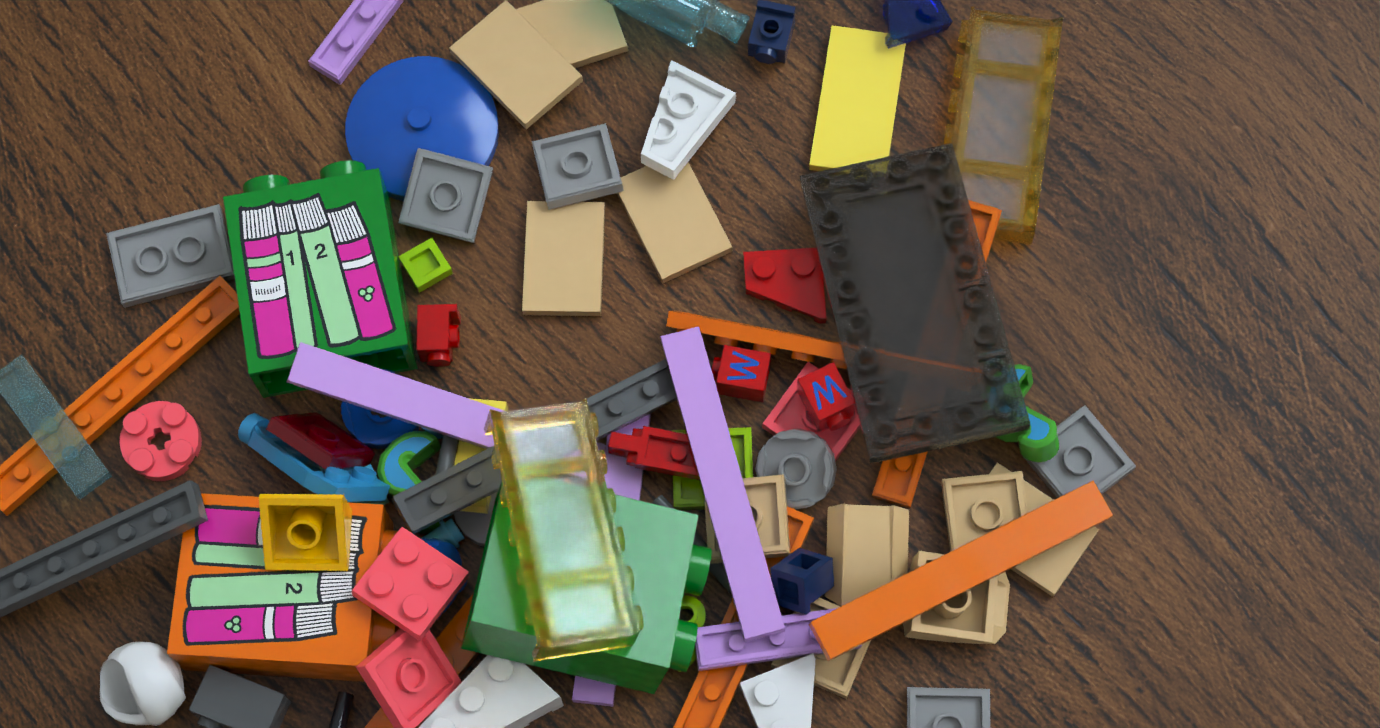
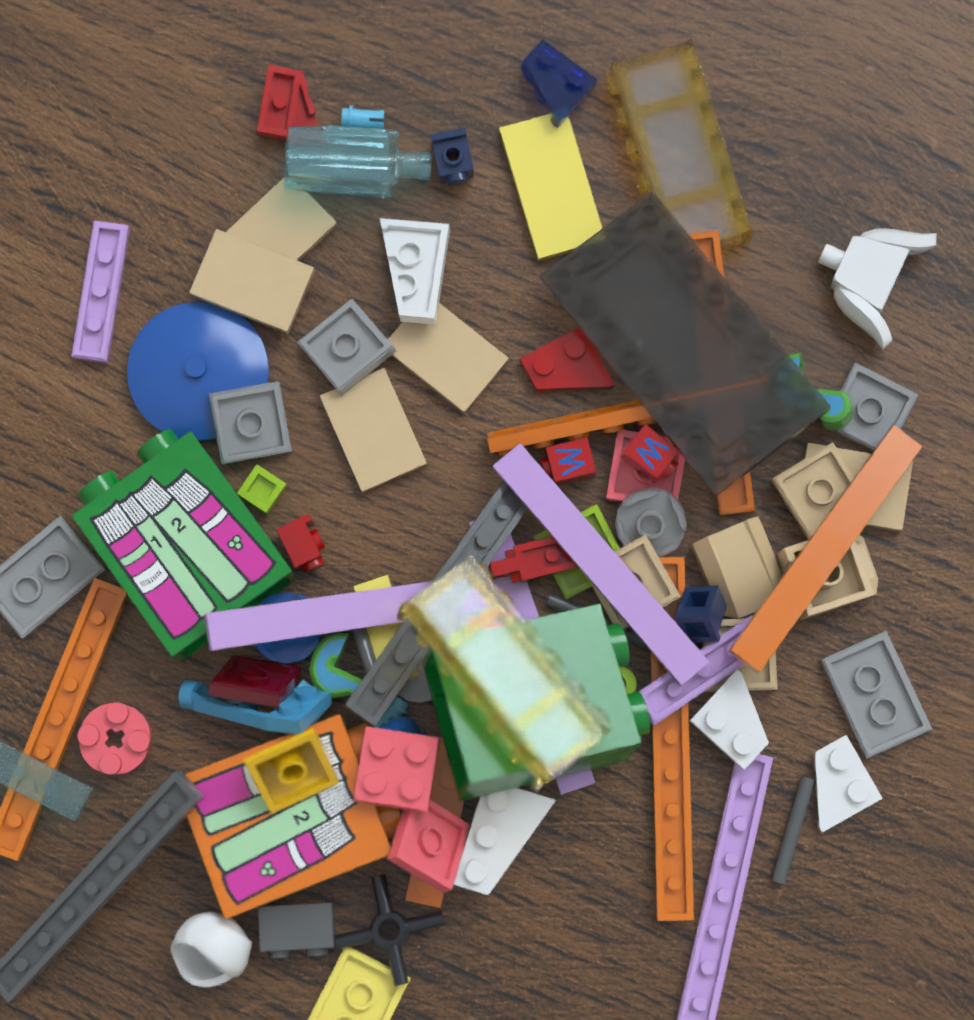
camera: 30 degrees left, 10 degrees up
(1141, 321) = (869, 273): none -> white torso

